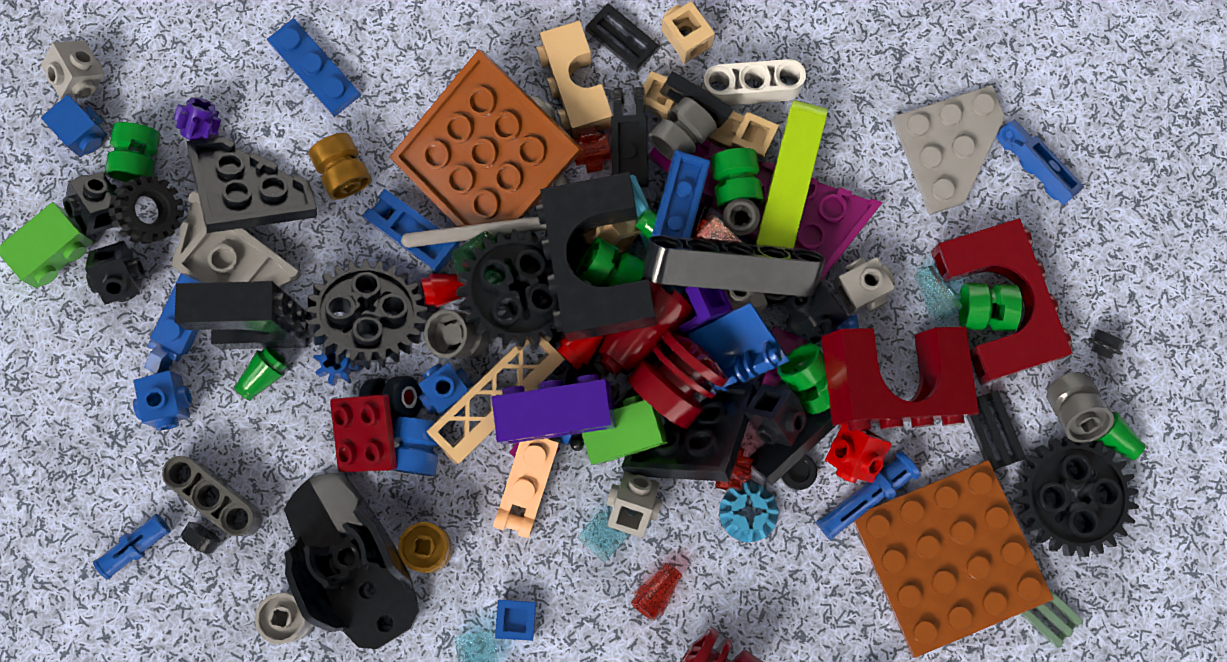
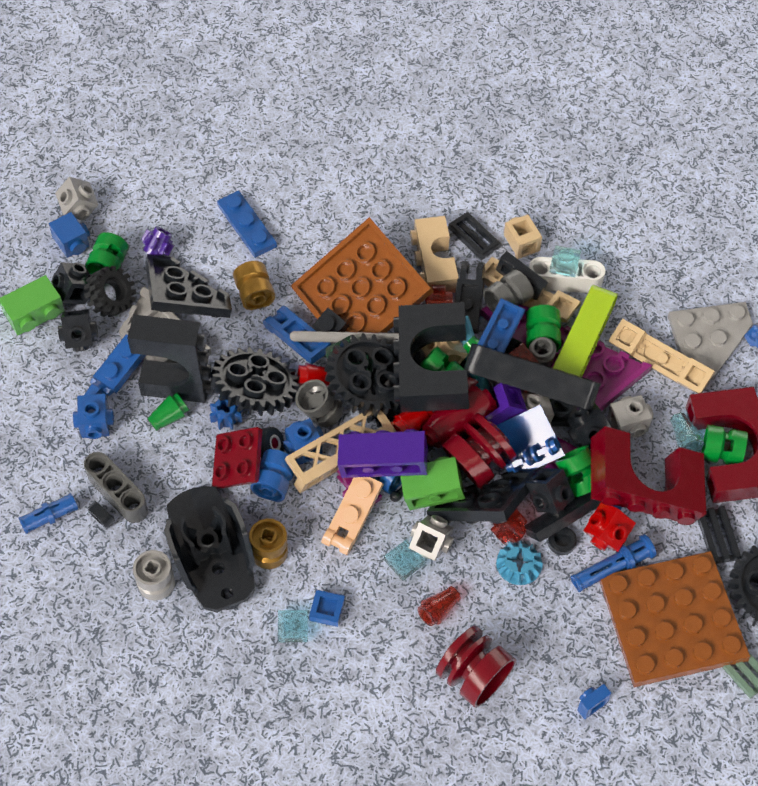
camera: 10 degrees right, 20 degrees down
(452, 211) = (330, 322): none -> black plate
(751, 68) = (565, 261): none -> clear light blue plate
(895, 189) = (663, 358): none -> tan slope

